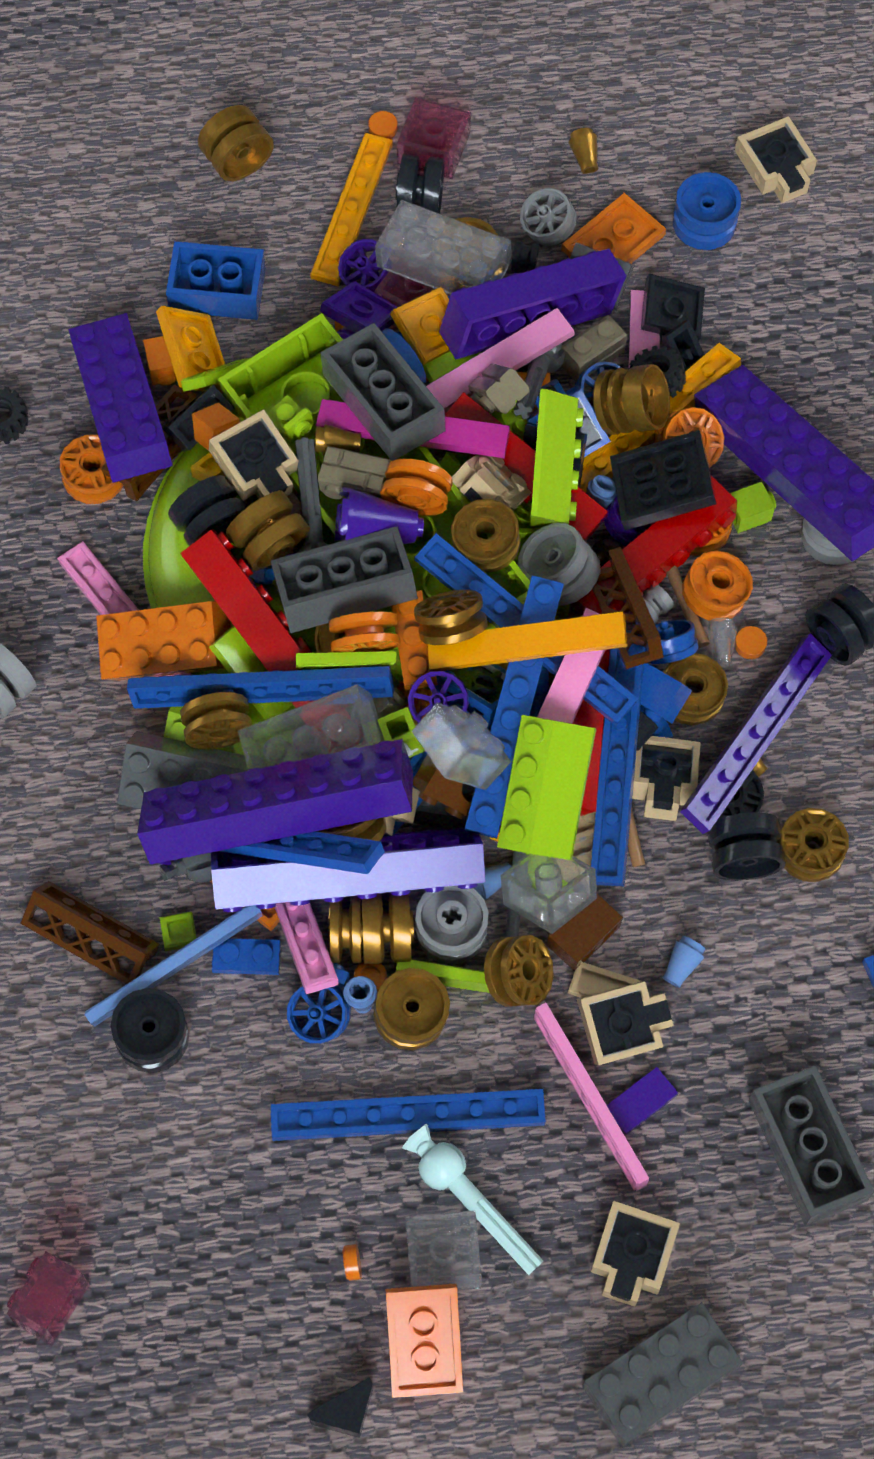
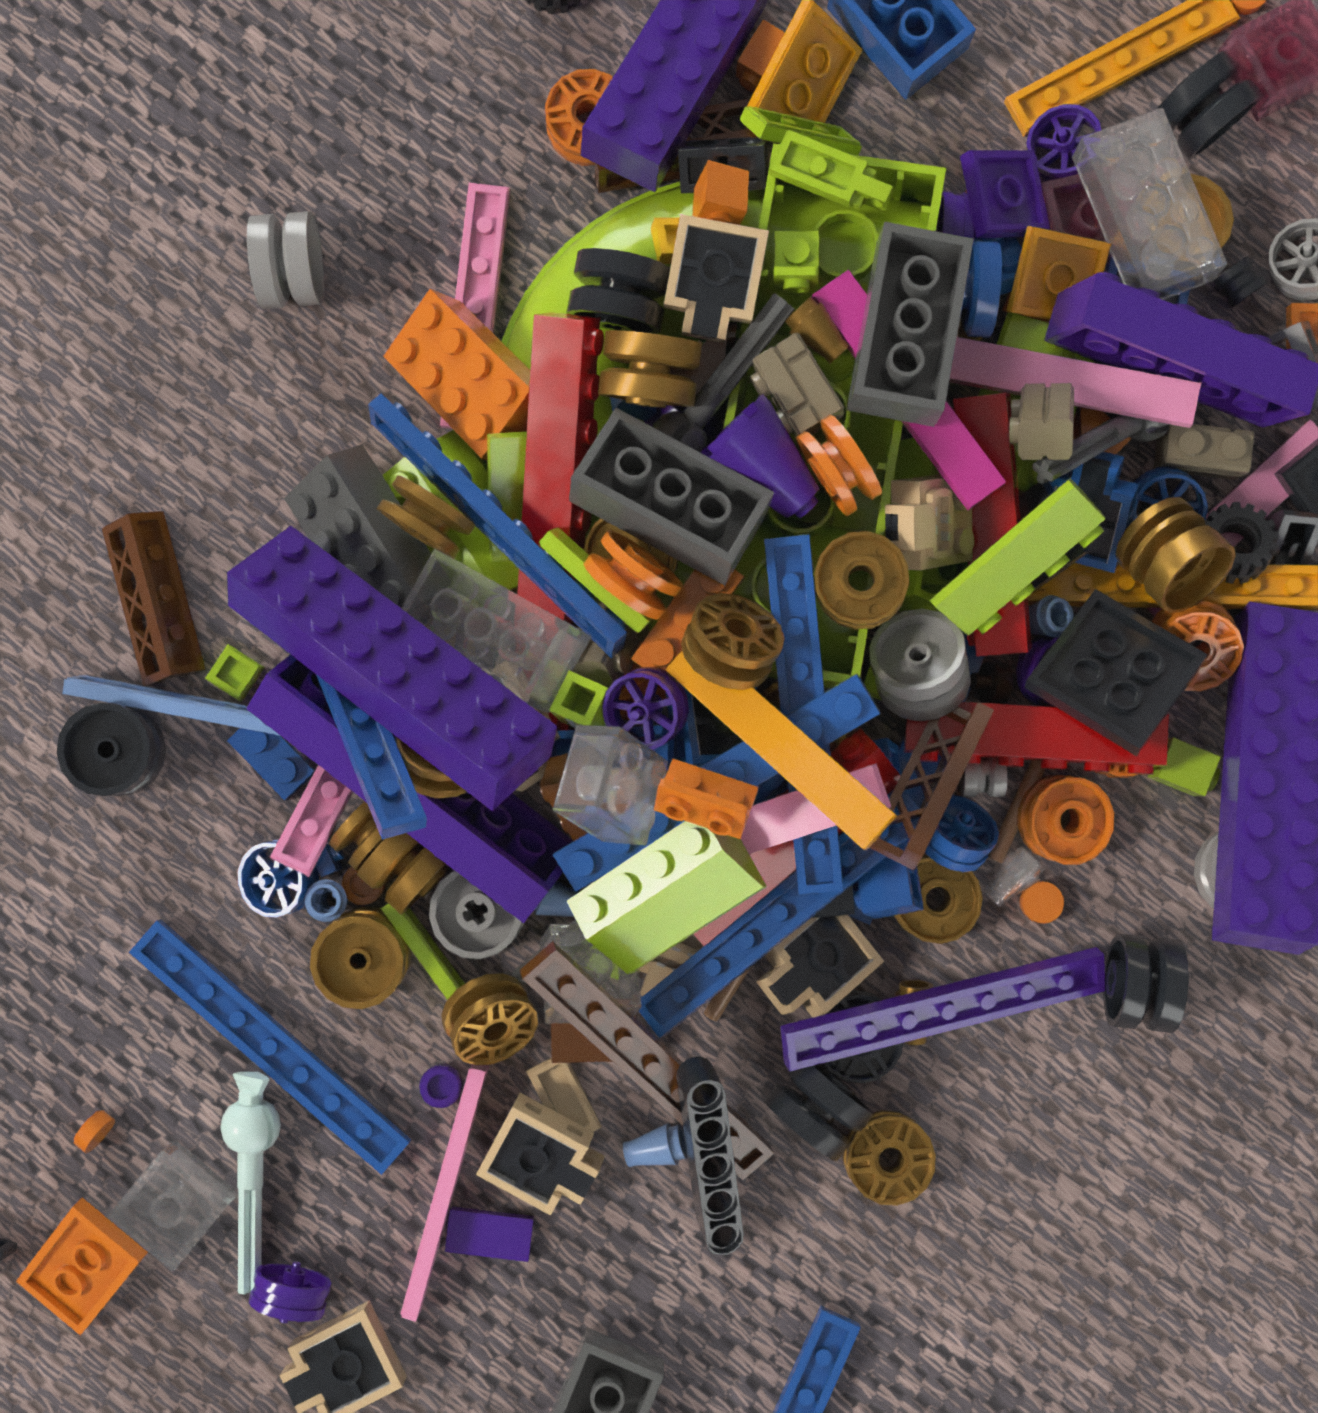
camera: 45 degrees right, 20 degrees up
(264, 363) = (829, 173): none -> lime hinge
(519, 705) = (705, 799): none -> orange bracket
(528, 1046) = (440, 1086): none -> dark purple tile
(561, 1234) = (290, 1292): none -> dark purple wheel
(629, 895) = (628, 1043): none -> plate
(701, 918) = (710, 1155): none -> black beam

